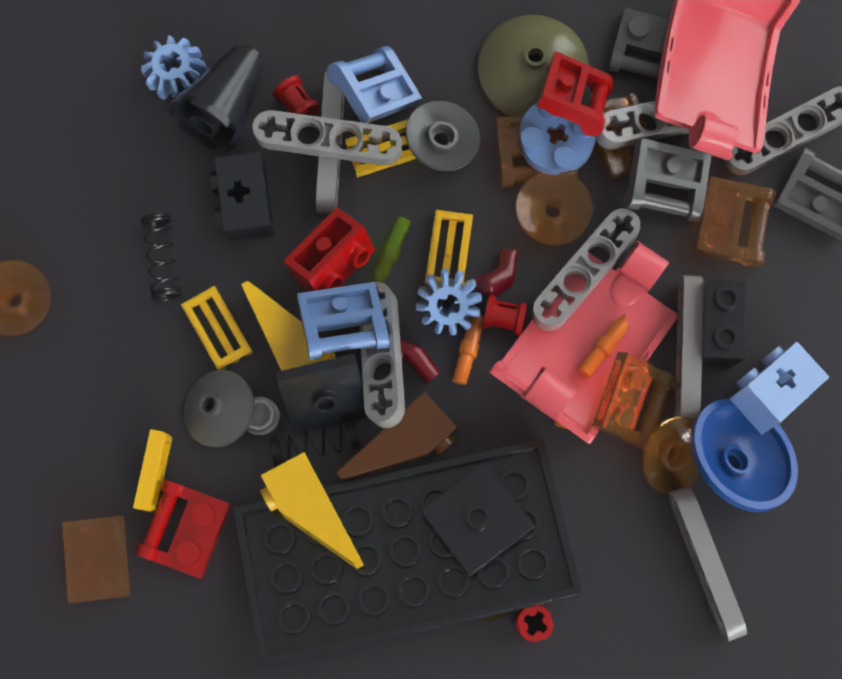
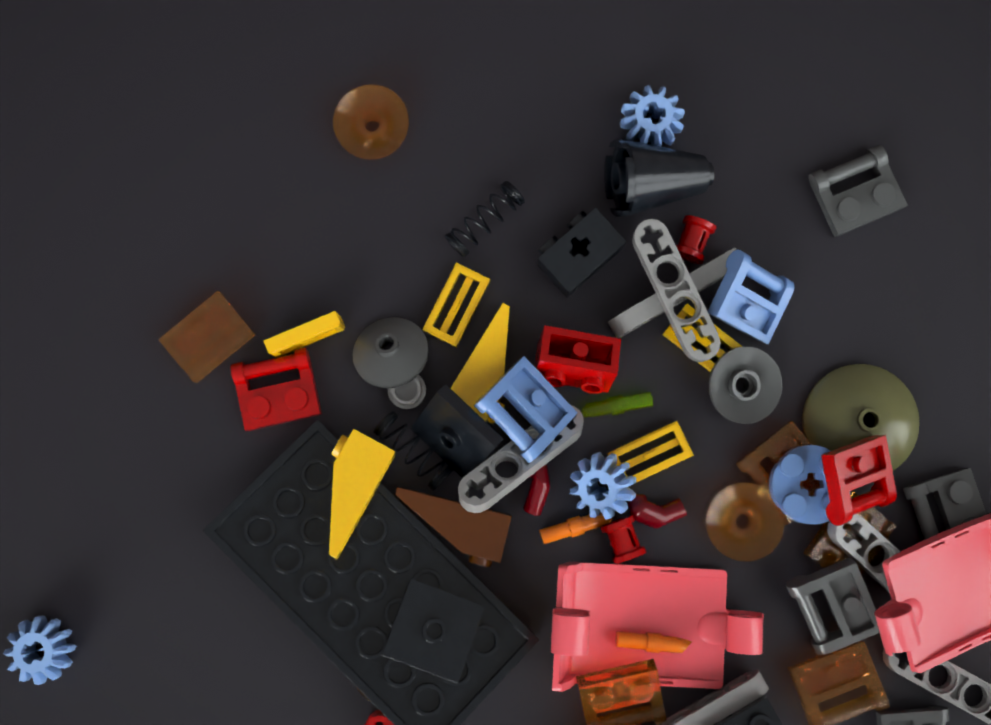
camera: 60 degrees right, 5 degrees up
(585, 268) = (709, 581): light grey beam -> none

